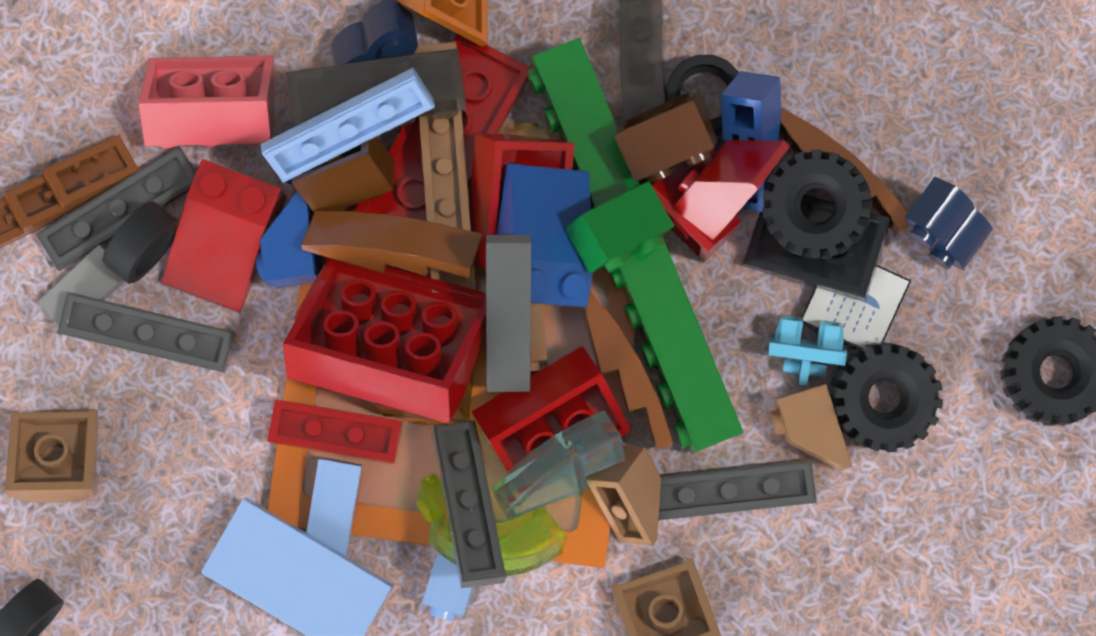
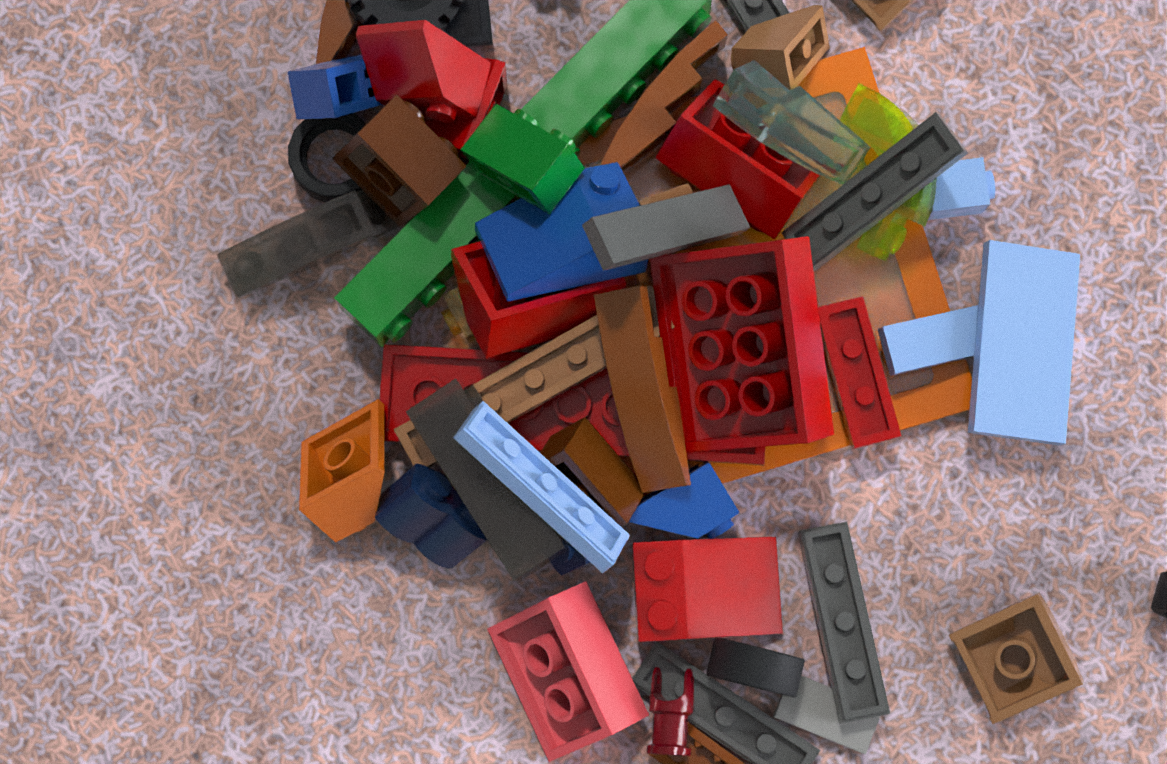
camera: 120 degrees left, 0 degrees up
(134, 160) = (670, 717): none -> dark red piece

